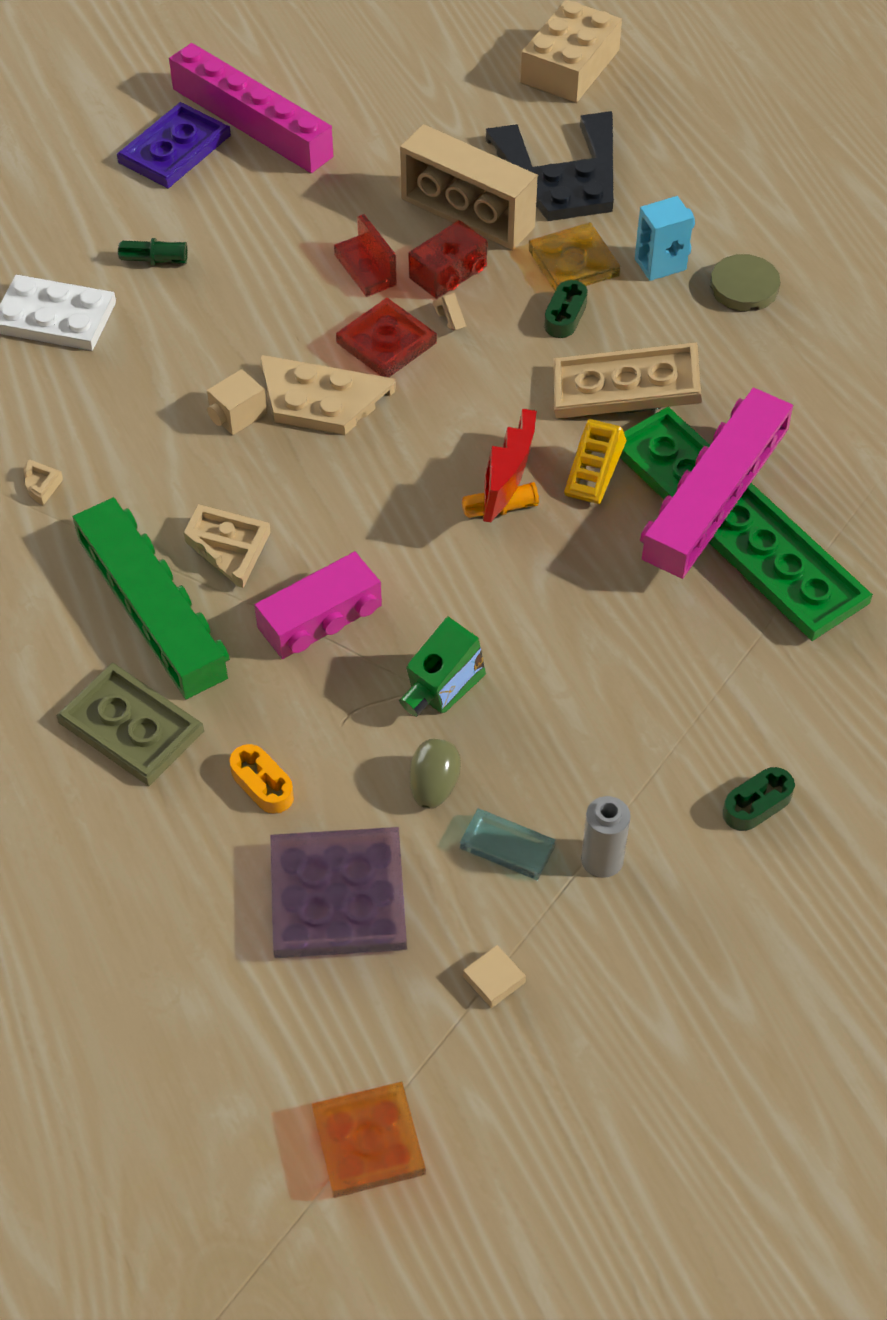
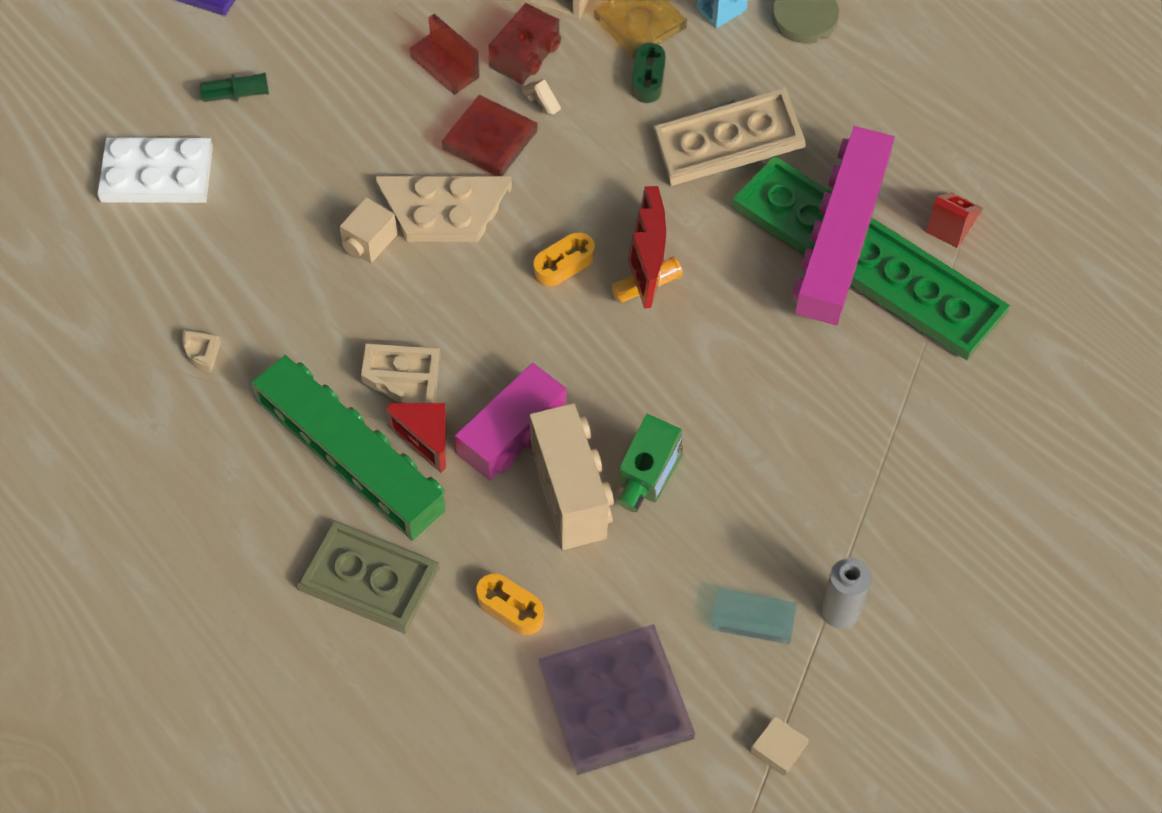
camera: 15 degrees left, 5 degrees up
(229, 593) = (422, 428): none -> red slope
(357, 665) = (570, 476): none -> tan brick
(423, 465) = (566, 262): none -> light orange beam
(434, 772) = (669, 564): olive animal -> none
(599, 438) = (724, 195): yellow slope -> none
(754, 792) = (969, 527): dark green beam -> none
(837, 500) = (952, 218): none -> red slope

